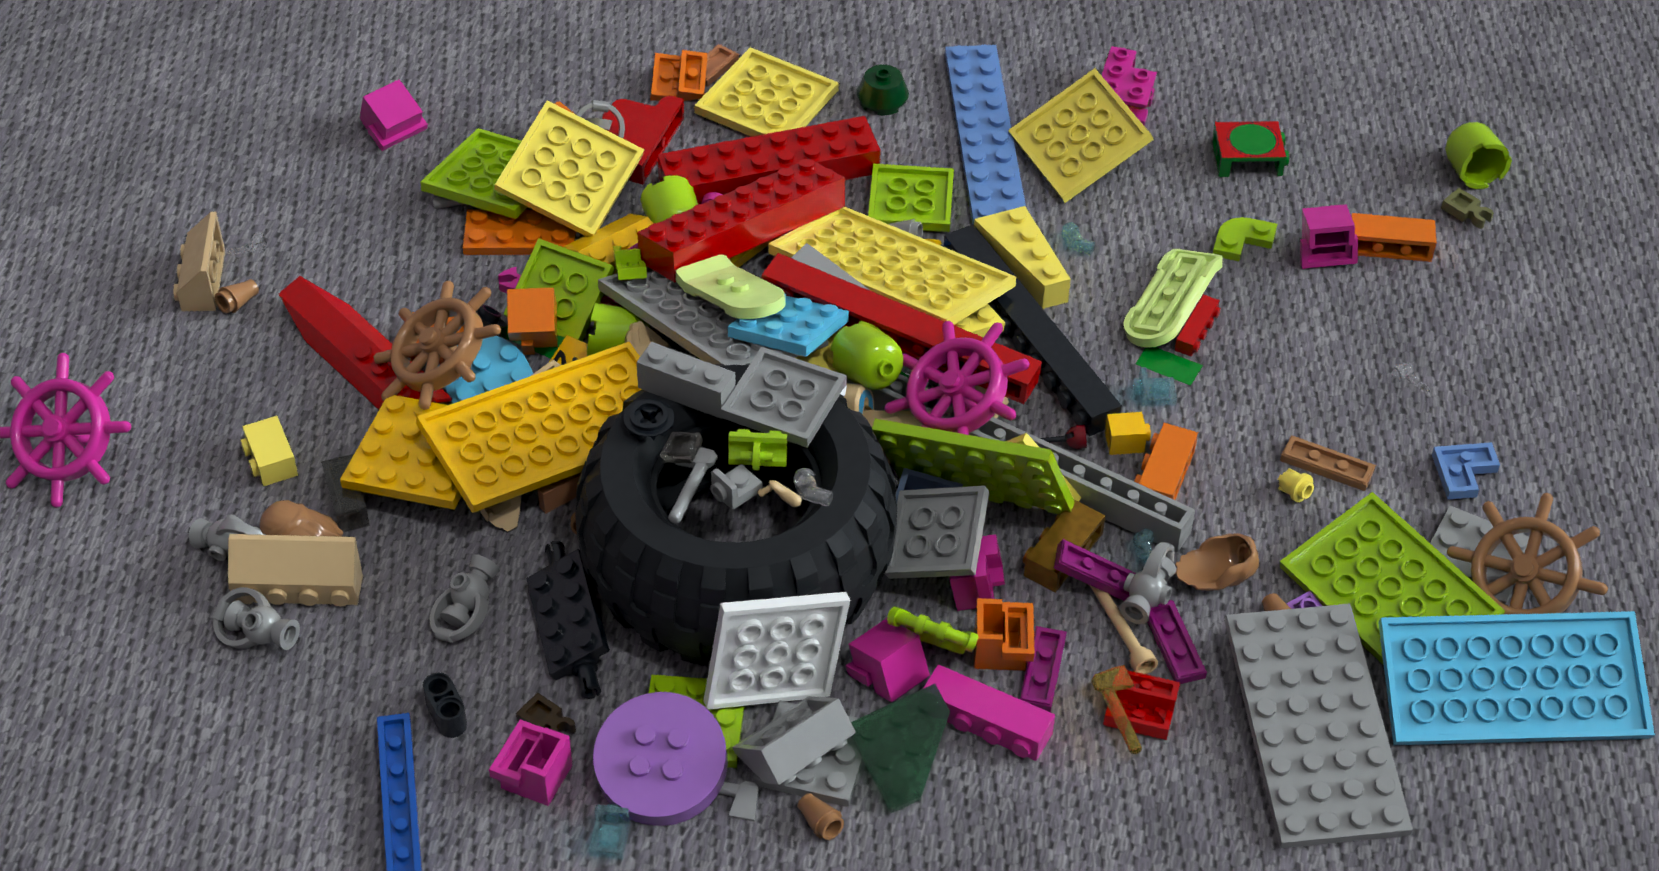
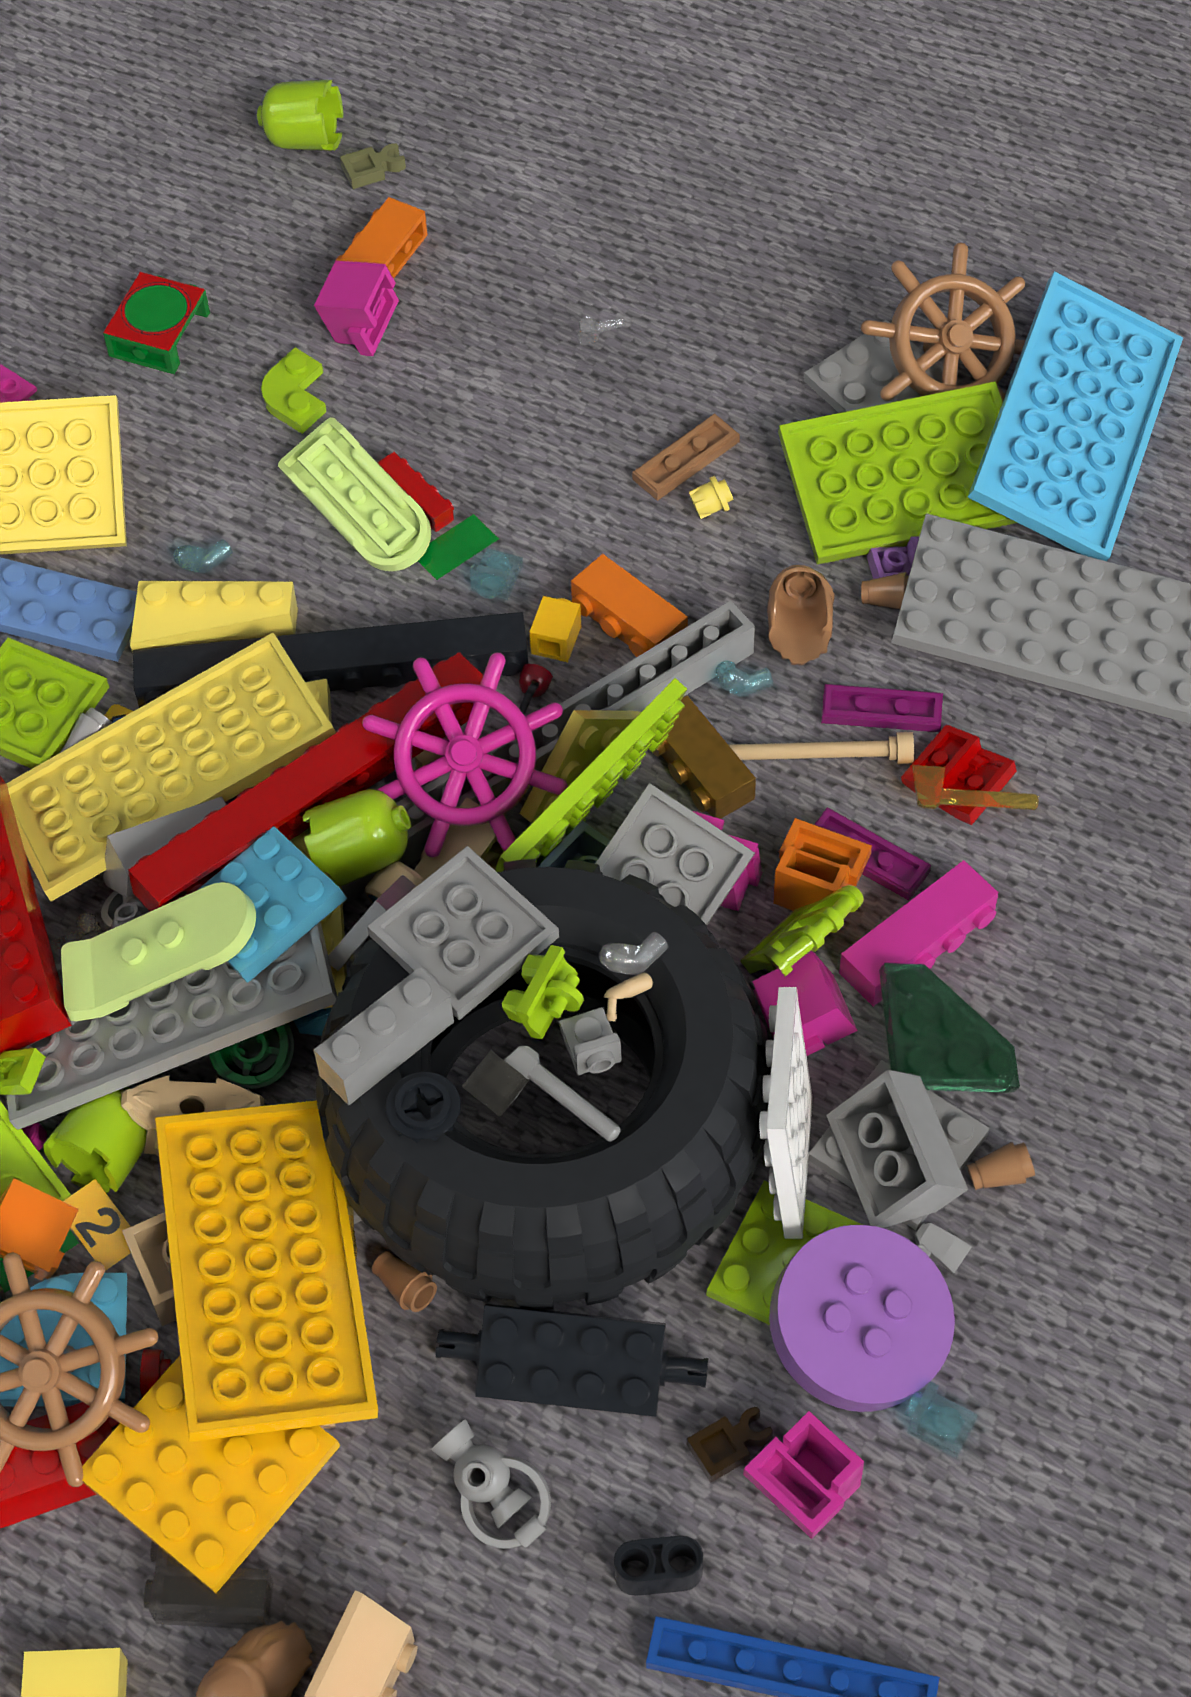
camera: 65 degrees left, 10 degrees up
(1091, 569) = (765, 737): magenta tile -> none
(1149, 586) = (811, 693): light grey piece -> none
(1458, 465) = (750, 341): medium blue plate -> none

